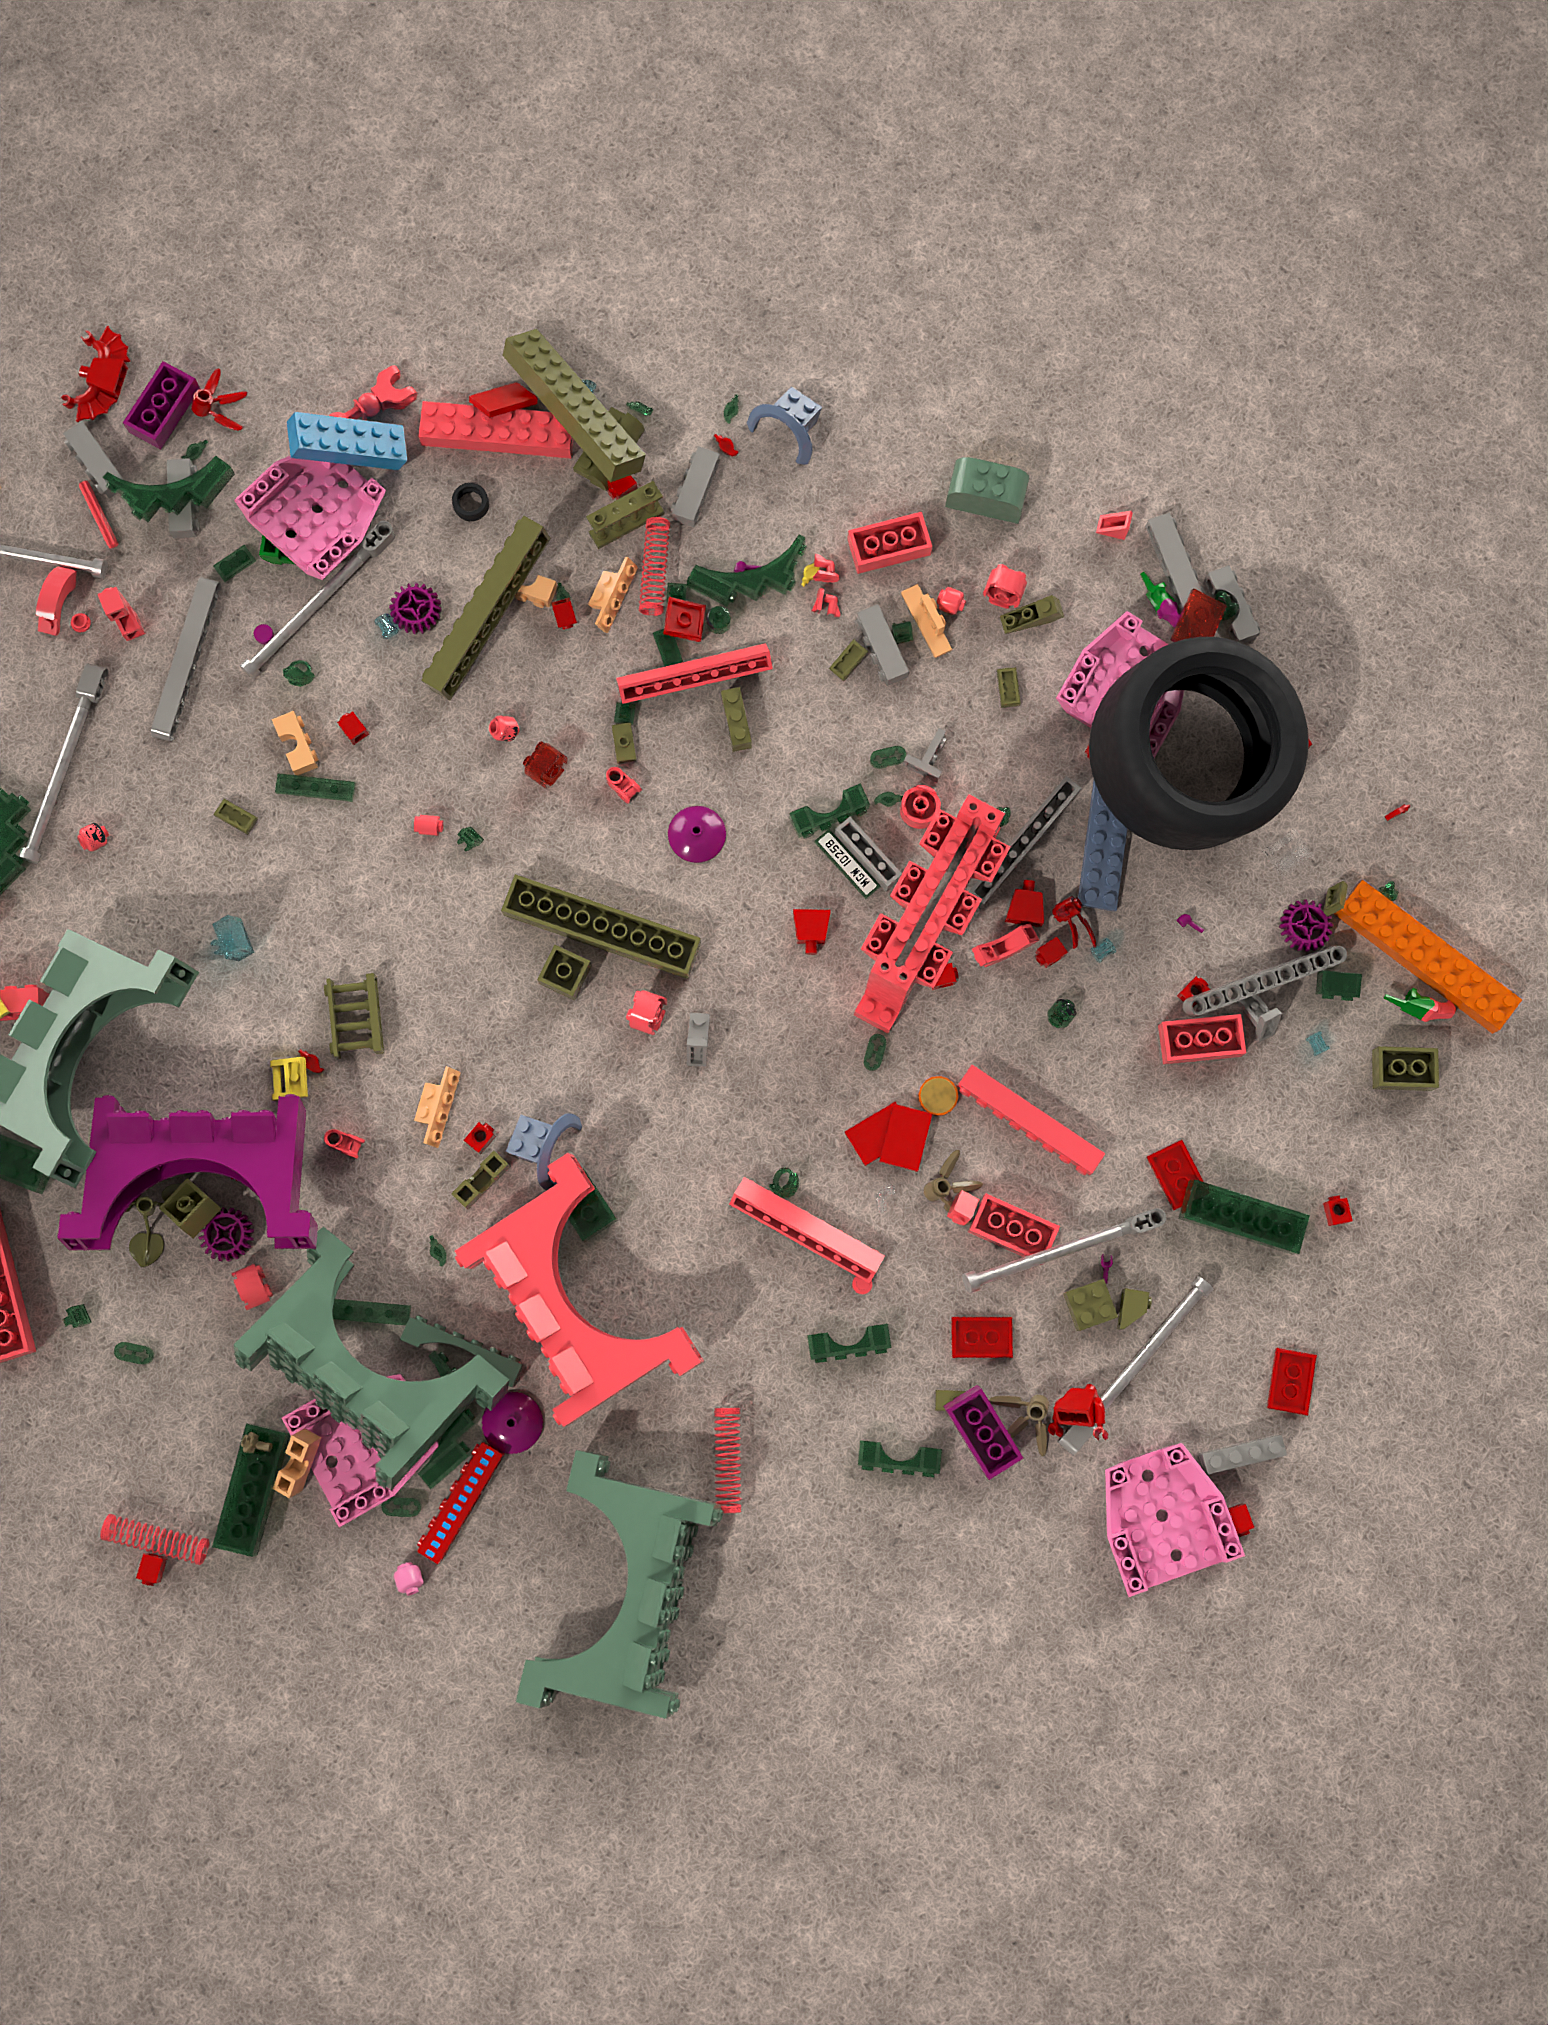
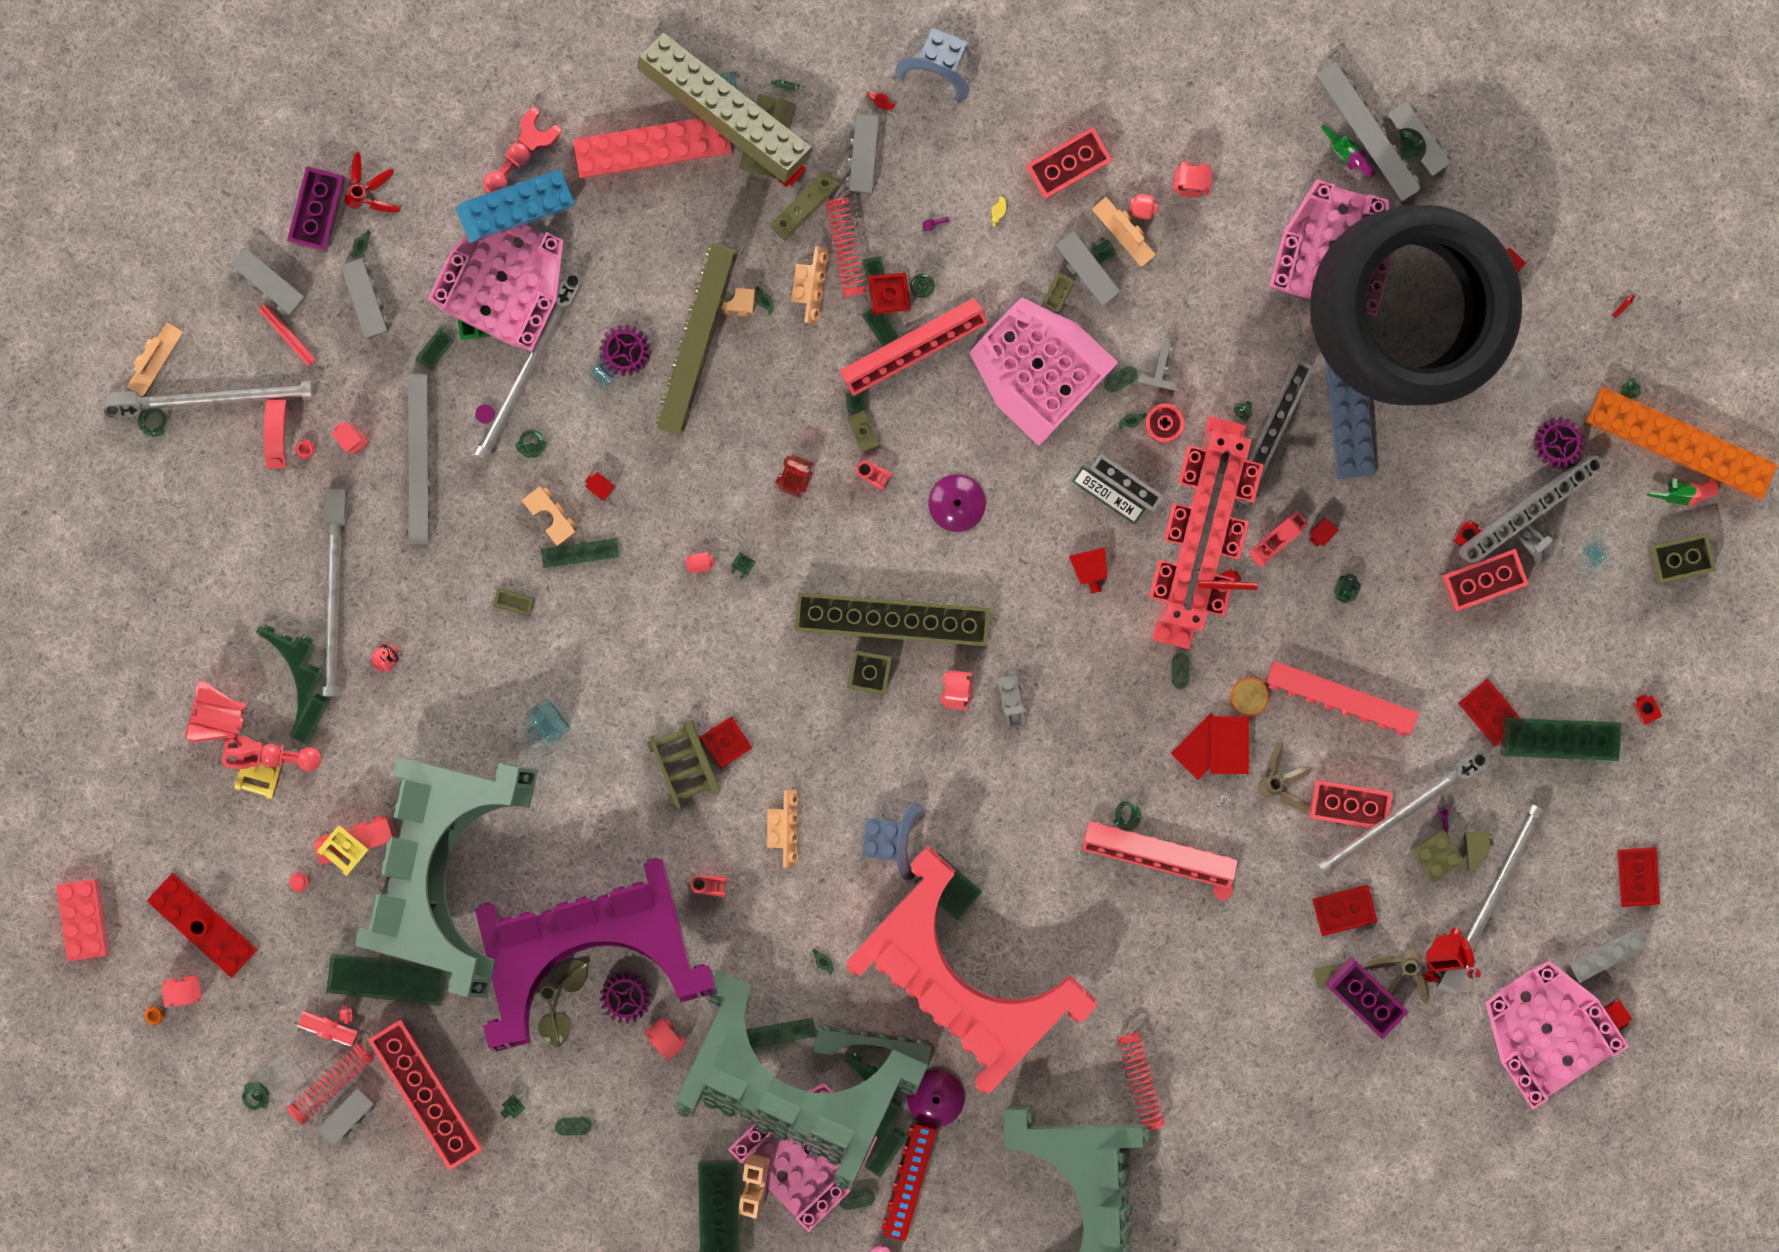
camera: 15 degrees left, 10 degrees up
(103, 376) = (249, 192): red torso -> none
(173, 497) = (336, 314): clear green arch -> none
(190, 1208) = (588, 984): olive brick -> none
(250, 1443) = (708, 1179): dark tan plate -> none
(294, 1077) = (645, 838): light yellow plate -> none
(312, 1062) = (655, 817): red piece -> none
(403, 1006) = (725, 742): none -> red tile
(470, 515) = (661, 229): black tyre -> none
(471, 1137) = (833, 856): red brick -> none
(473, 1188) = (846, 887): olive arch -> none
(503, 399) = (651, 116): red tile -> none
(504, 728) = (745, 449): coral head -> none
(564, 613) = (770, 318): red brick -> none
(723, 585) = (966, 224): clear green arch -> none
(731, 409) = (876, 61): clear green piece -> none
(736, 719) = (965, 381): olive arch -> none
(797, 746) = (1030, 394): none -> bright pink wedge
(807, 821) = (1059, 464): clear green arch -> none
(828, 575) = (1006, 199): coral piece -> none
(831, 599) = (1028, 239): coral piece -> none
(875, 1339) = (1247, 938): clear green arch -> none
(925, 1460) = (1320, 1036): clear green arch -> none
(944, 955) = (1227, 585): none -> red bar
(963, 1208) = (1298, 797): coral brick -> none
(987, 489) = (1151, 85): sand green brick -> none
(1008, 687) = (1219, 279): olive plate -> none
(1026, 906) = (1288, 493): red torso -> none
(1032, 615) = (1225, 200): olive slope -> none
(1068, 909) = (1328, 488): red plant -> none
(1103, 950) = (1368, 521): clear light blue bush -> none
(1115, 524) = (1284, 85): coral slope -> none
(1185, 919) = (1442, 466): magenta hand -> none
(1199, 617) = (1389, 170): clear red tile -> none
(1335, 898) = (1581, 410): olive plate -> none
(1338, 984) = (1602, 493): clear green brick -> none

